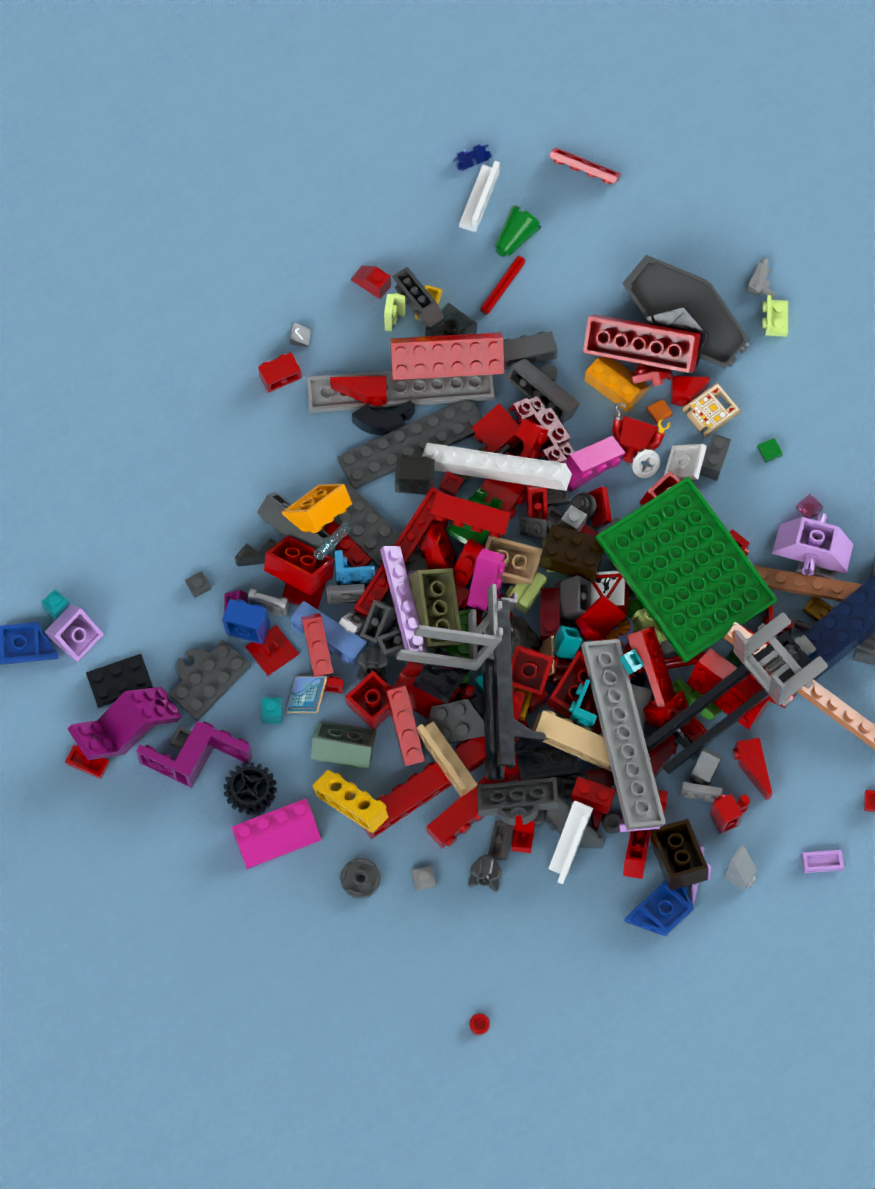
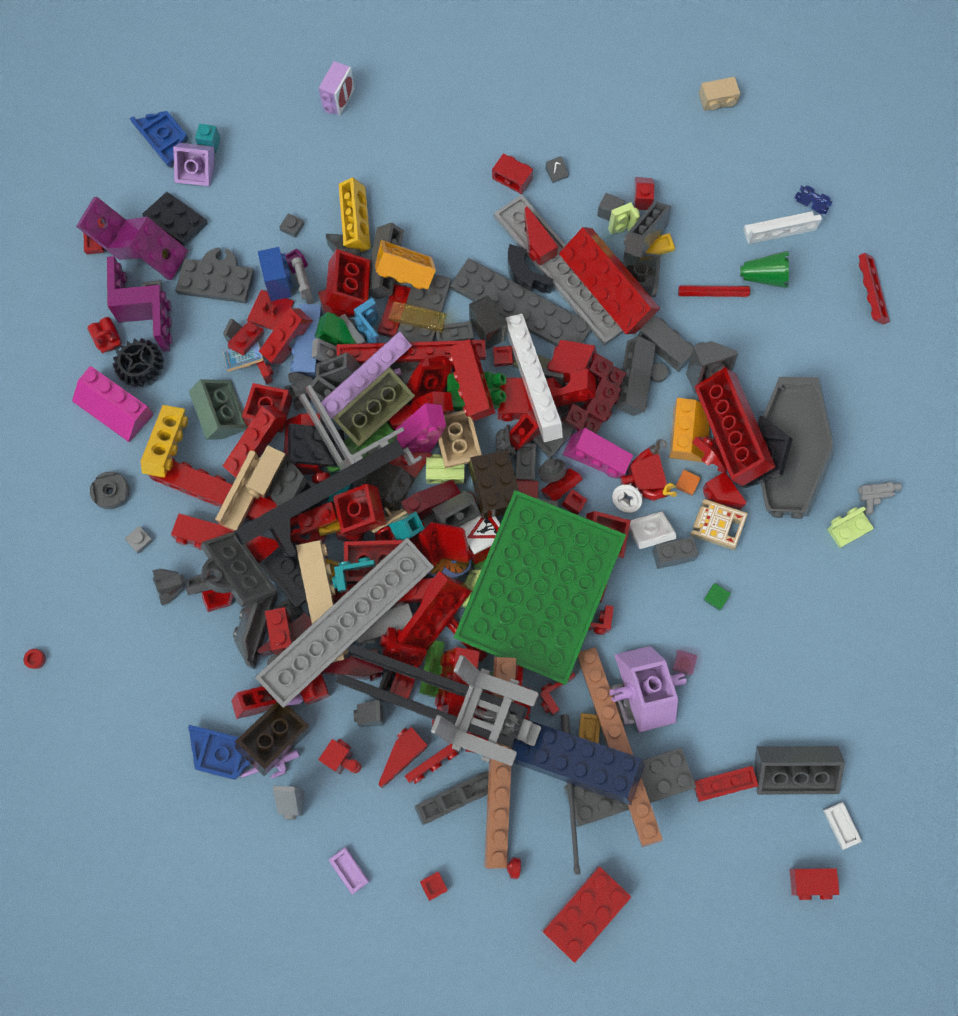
camera: 60 degrees right, 5 degrees up
(89, 465) = (336, 88): none -> lavender piece
(200, 804) = (104, 335): none -> red piece
(231, 524) = (354, 215): none -> yellow brick
(271, 711) = (213, 339): teal brick -> none
(275, 690) = (231, 329): none -> dark grey slope
(289, 683) = (245, 338): none -> red plate
(320, 162) = (719, 93): none -> tan brick
(328, 545) = (383, 293): clear light blue axle -> none
(337, 603) = (333, 330): none -> green slope
(369, 528) = (417, 316): none -> clear yellow tile
(370, 314) = (607, 204): none -> dark grey brick
(402, 509) = (456, 332): none -> dark grey plate
(443, 727) = (265, 472): none -> tan brick
(570, 840) = (226, 636): white fence -> none
(573, 328) = (707, 360): none -> dark grey slope
(573, 519) = (529, 468): light grey brick -> none
(621, 506) = (574, 502): none -> red plate
(631, 661) = (416, 589): teal plate -> none
(694, 791) = (344, 716): light grey plate -> none
(774, 742) = (432, 764): none -> red plate
(813, 744) = (453, 798): none -> dark grey slope

